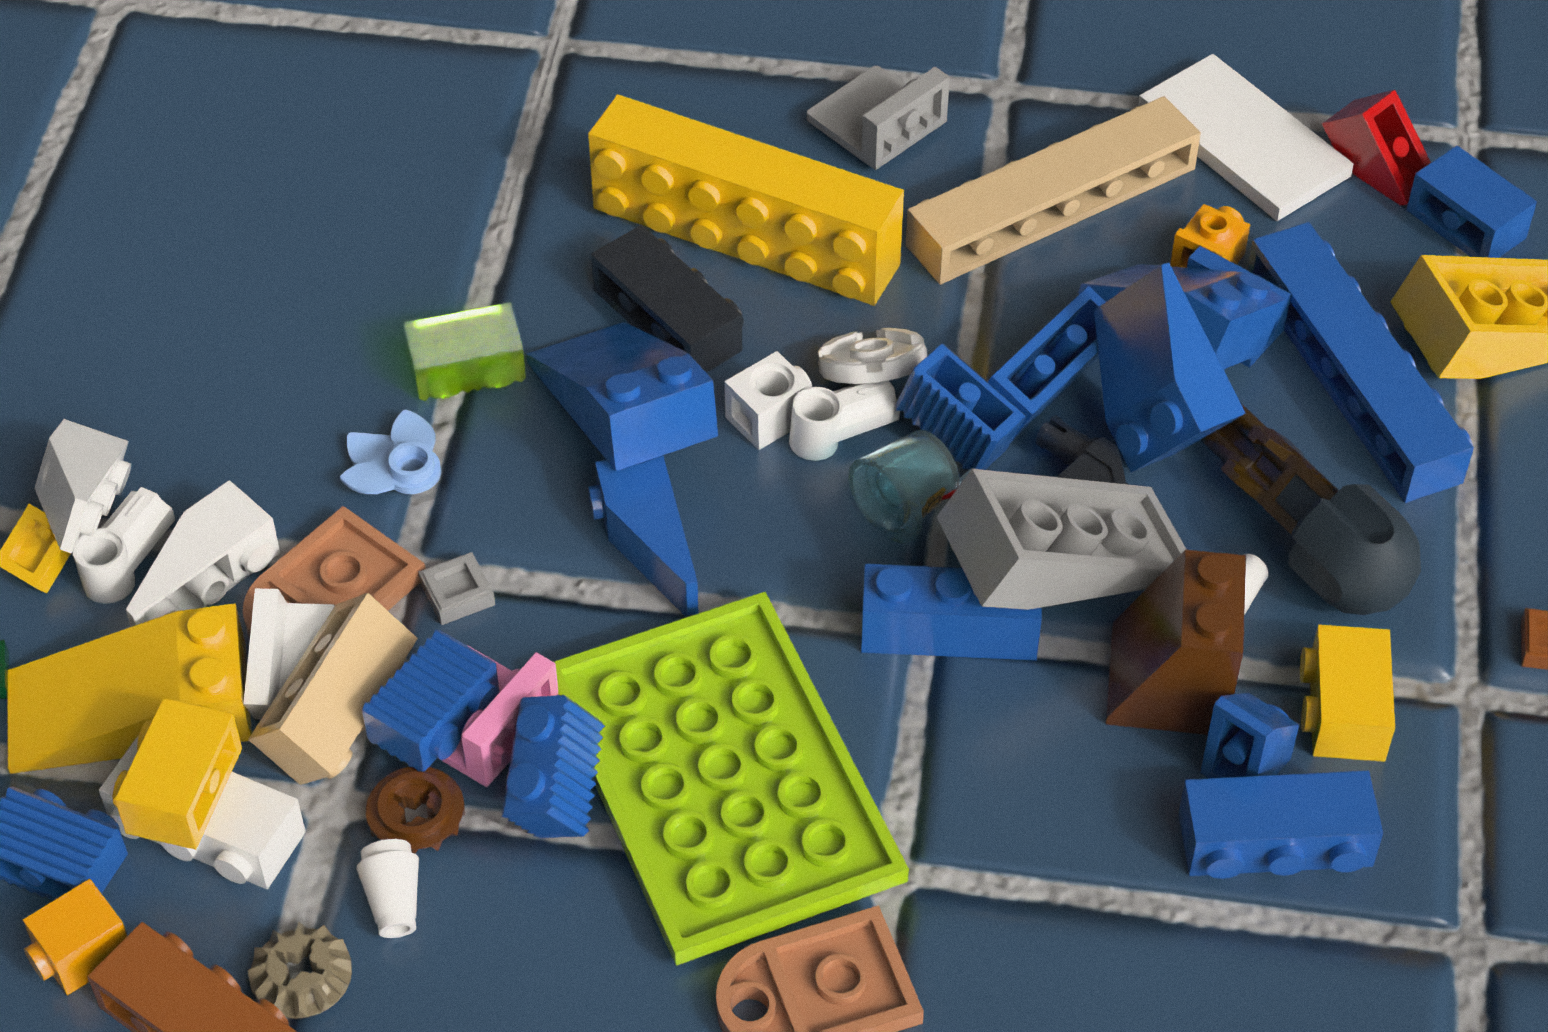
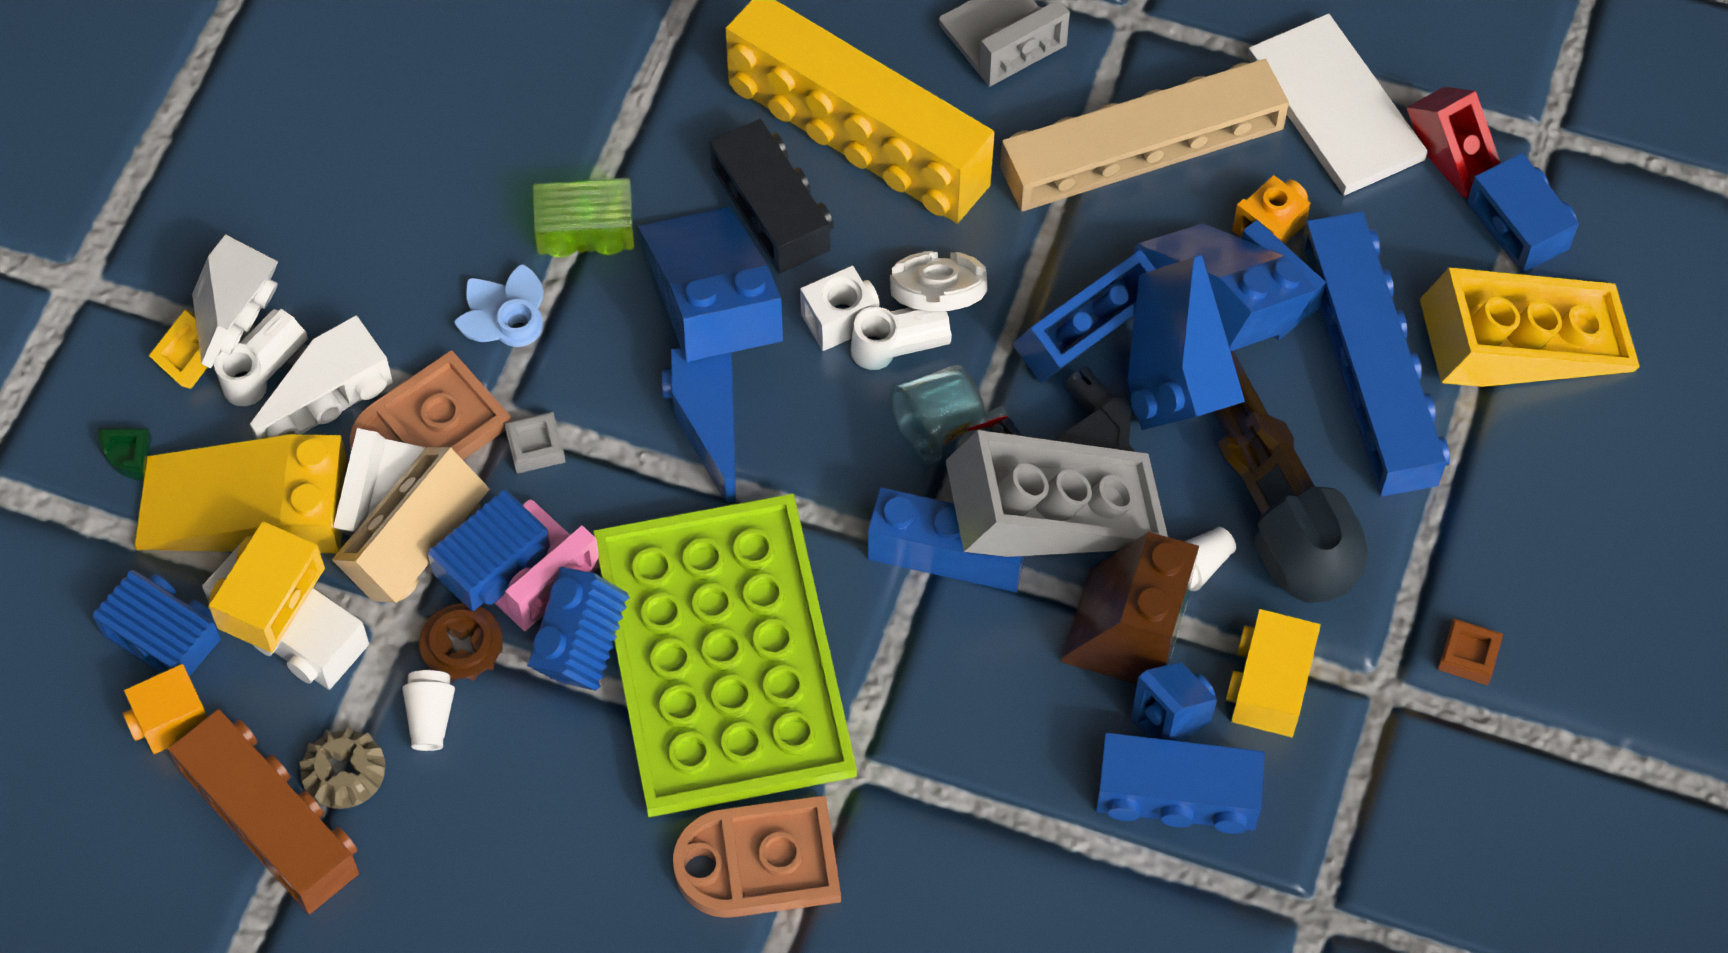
camera: 10 degrees right, 10 degrees up
(959, 409) = (1000, 349): blue brick -> none

